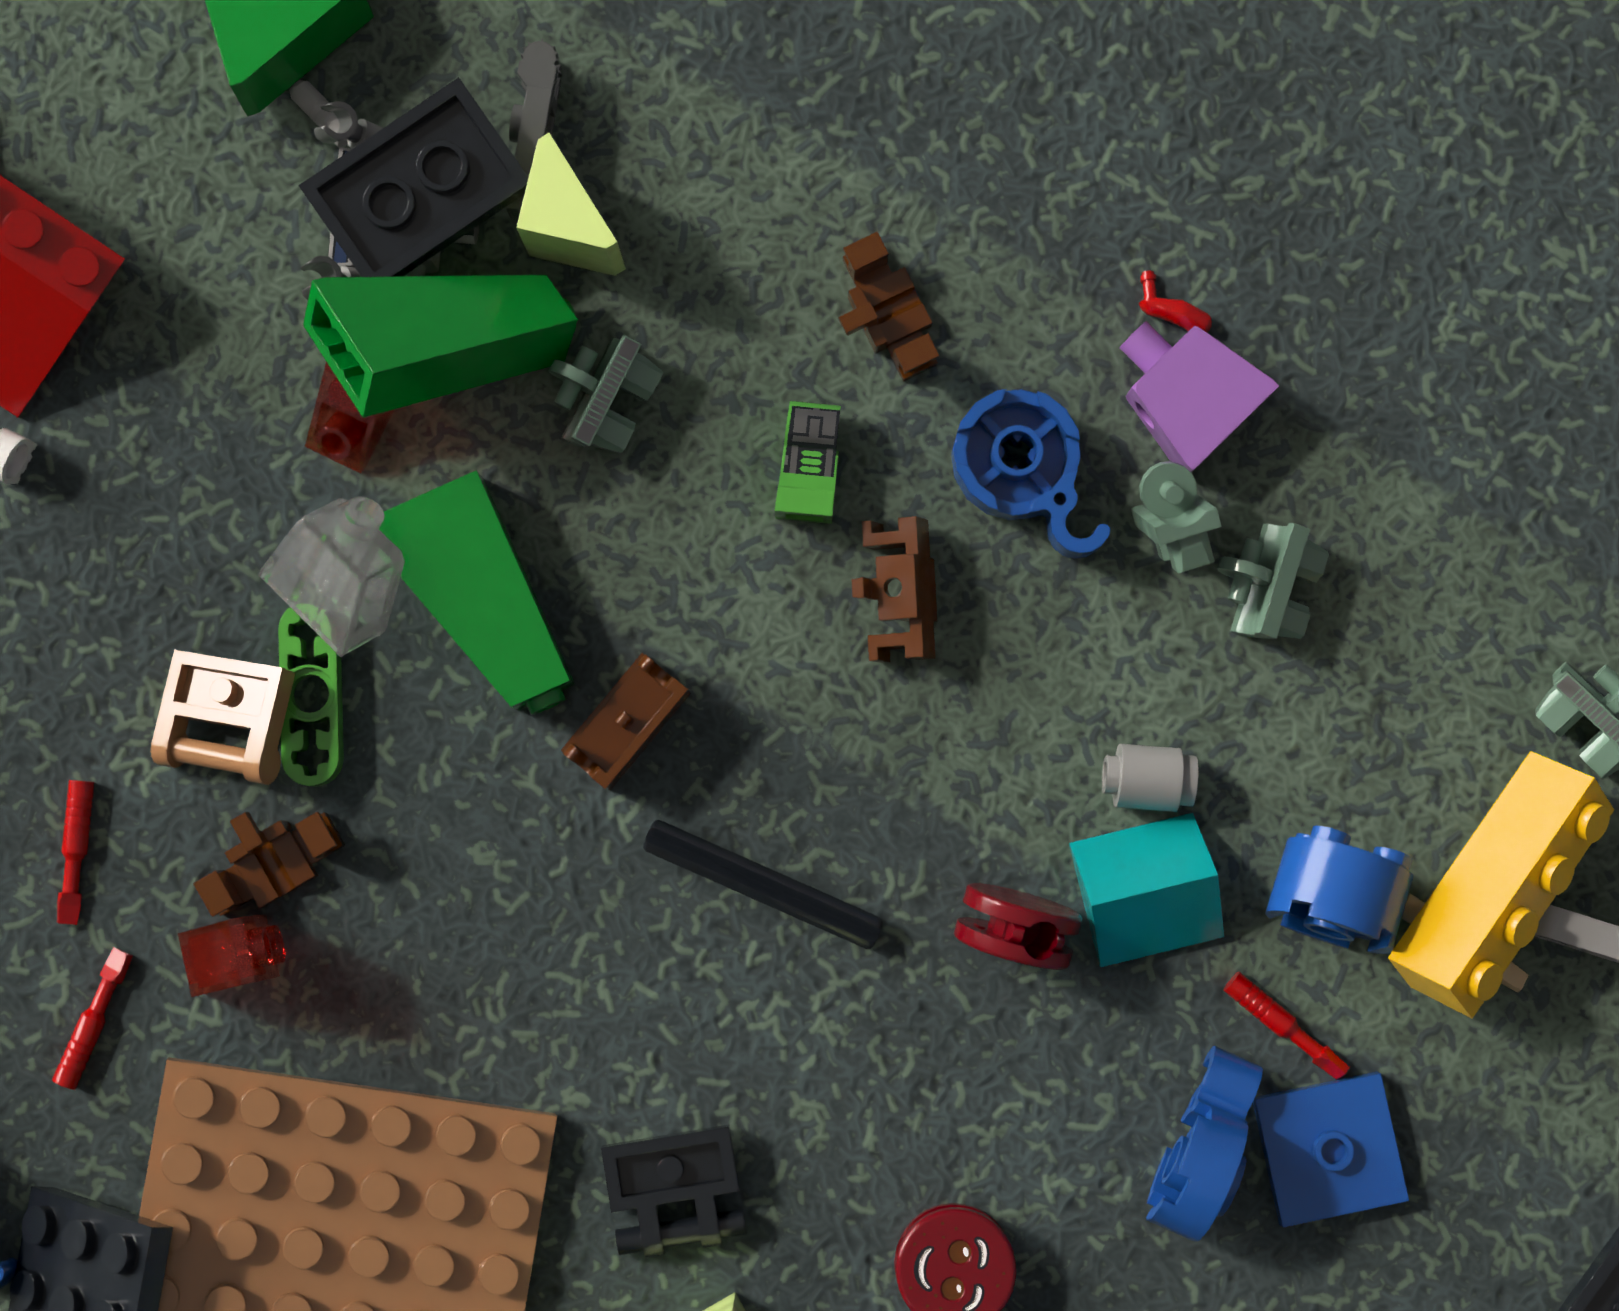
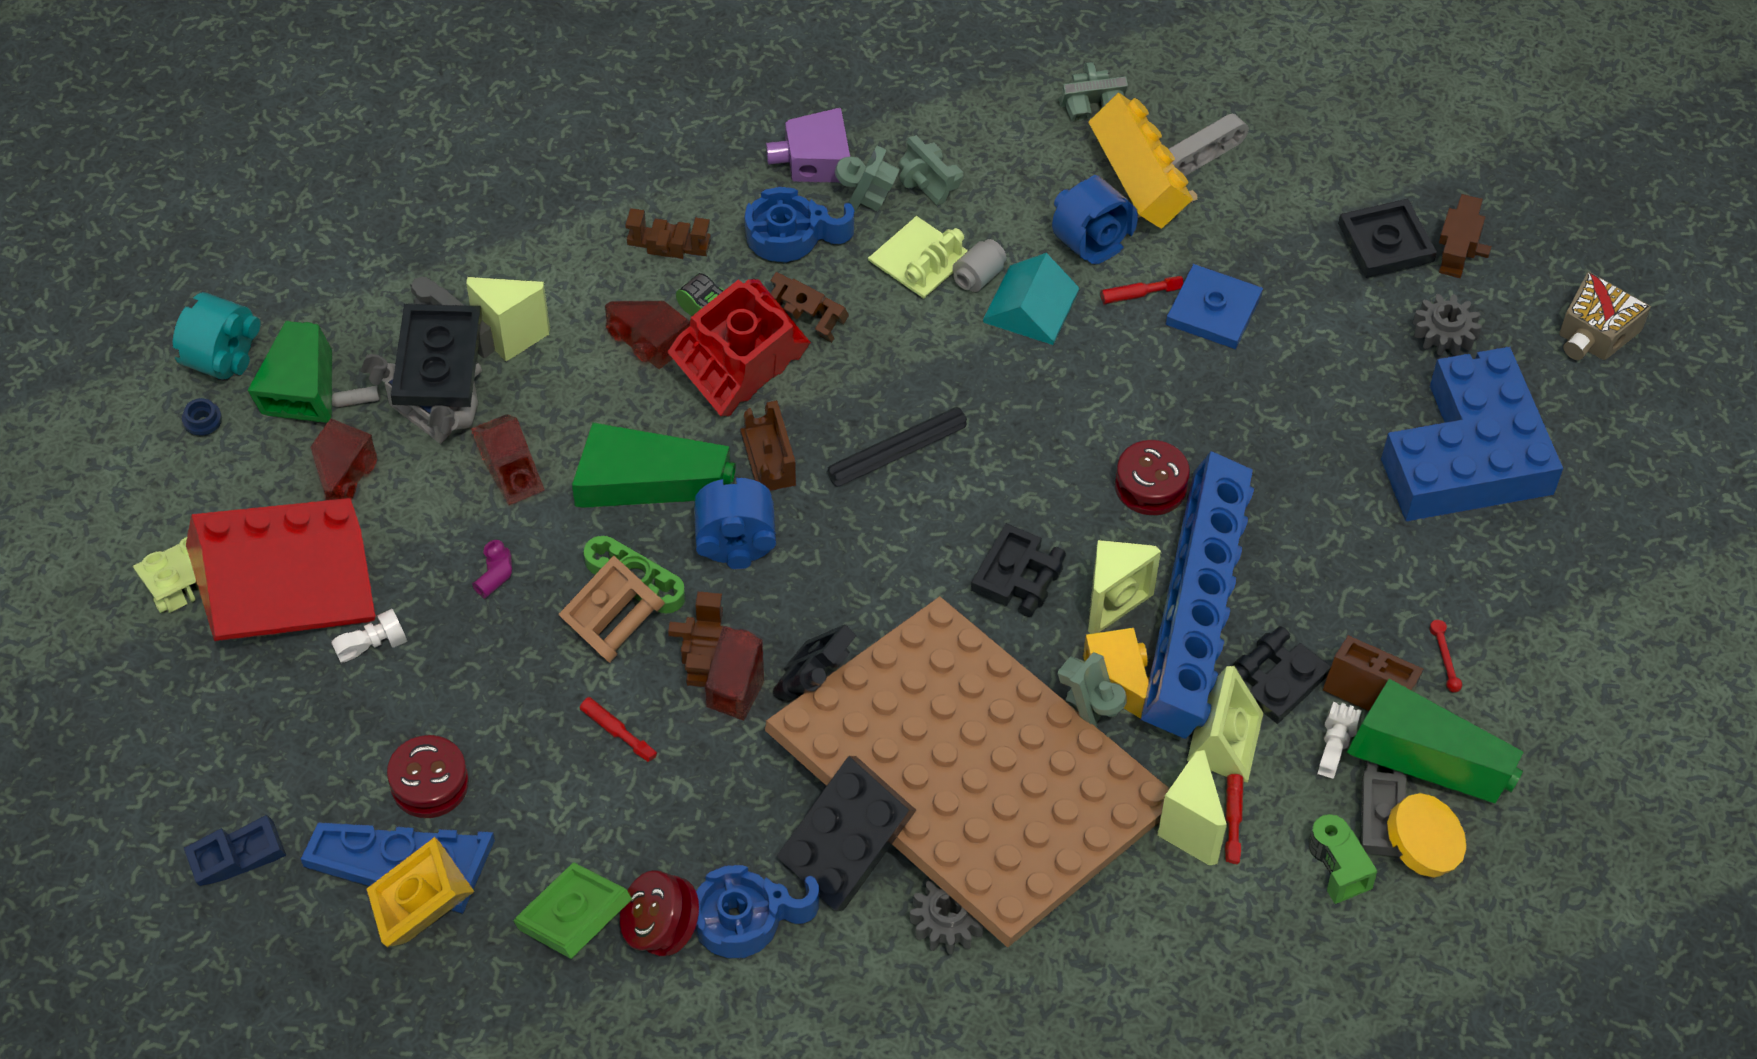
camera: 55 degrees left, 30 degrees down
(91, 1022) = (714, 778): red piece -> none
(193, 183) = (342, 458): none -> clear red slope
(195, 516) = (498, 568): none -> magenta arm
(330, 1049) = (806, 668): none -> black plate
(338, 572) = (586, 504): clear torso -> none
(434, 334) = (511, 390): green slope -> none
(452, 782) = (734, 522): none -> blue brick
(618, 369) = (598, 363): sand green hips -> none
(704, 417) = (646, 328): none -> clear red slope
(747, 566) = (737, 345): none -> red slope
(1019, 927) = (1005, 346): dark red head -> none
(1114, 679) = (920, 255): none -> yellowish green hinge
(1171, 310) = (770, 135): red piece -> none
(1207, 1165) = (1179, 339): blue piece -> none

